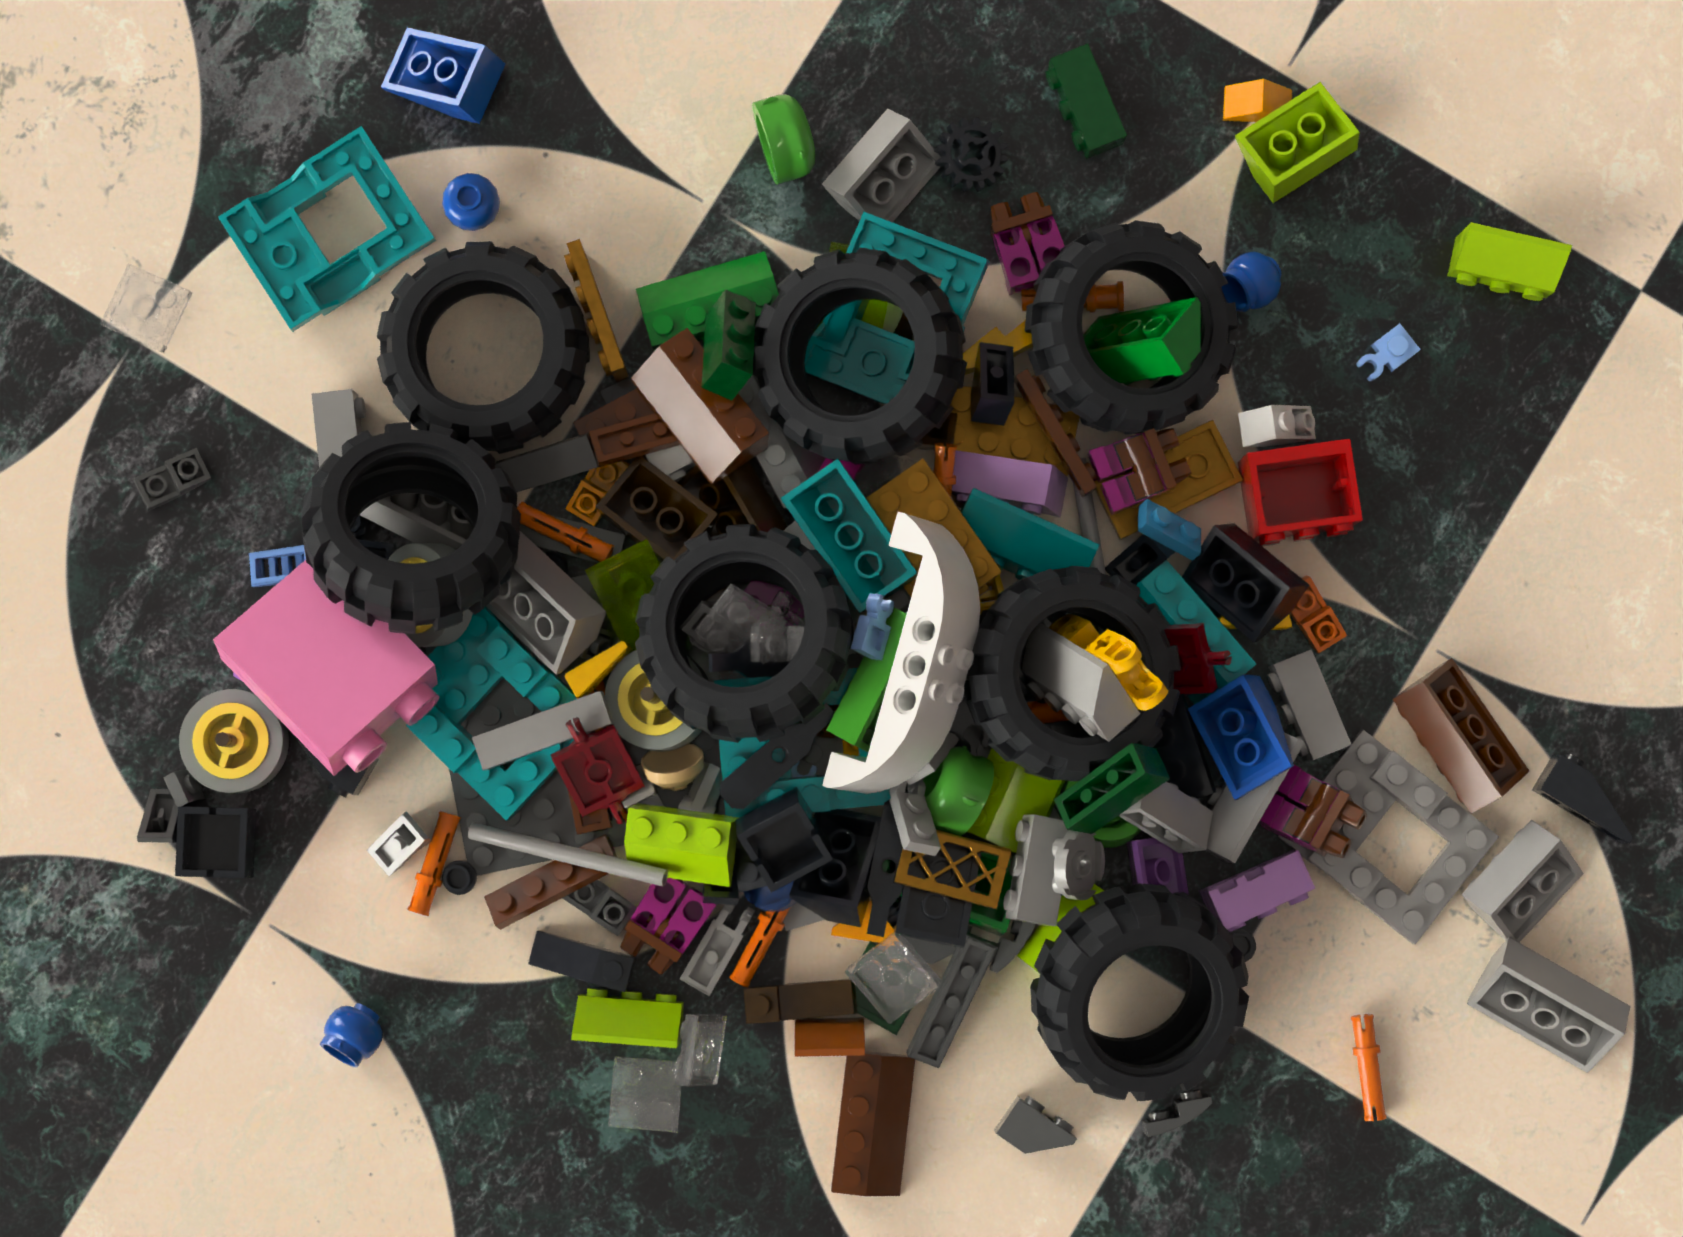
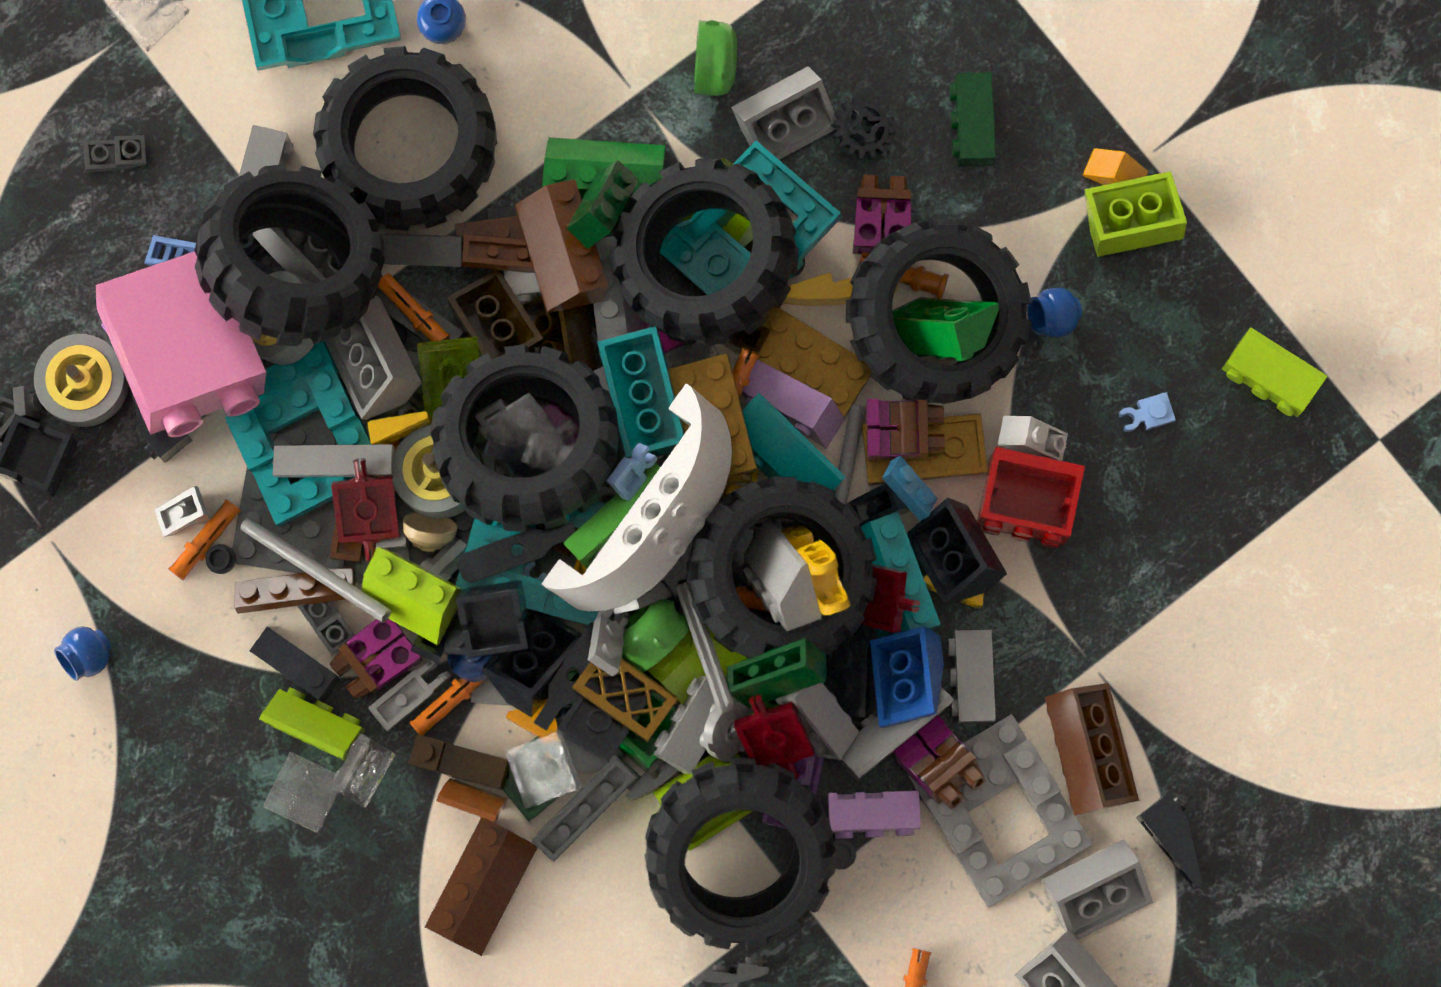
camera: 20 degrees right, 5 degrees down
(592, 302) = (508, 134): pearl gold plate -> none
(593, 489) = (449, 284): light orange slope -> none
(992, 384) = (808, 317): black slope -> none
(1022, 788) = (705, 650): none -> light grey axle
(1031, 1129) = (610, 941): dark grey slope -> none
(1049, 420) = (844, 363): reddish brown plate -> none
(1130, 854) = (774, 735): none -> dark red plate
(1317, 619) = (1006, 607): orange slope -> none

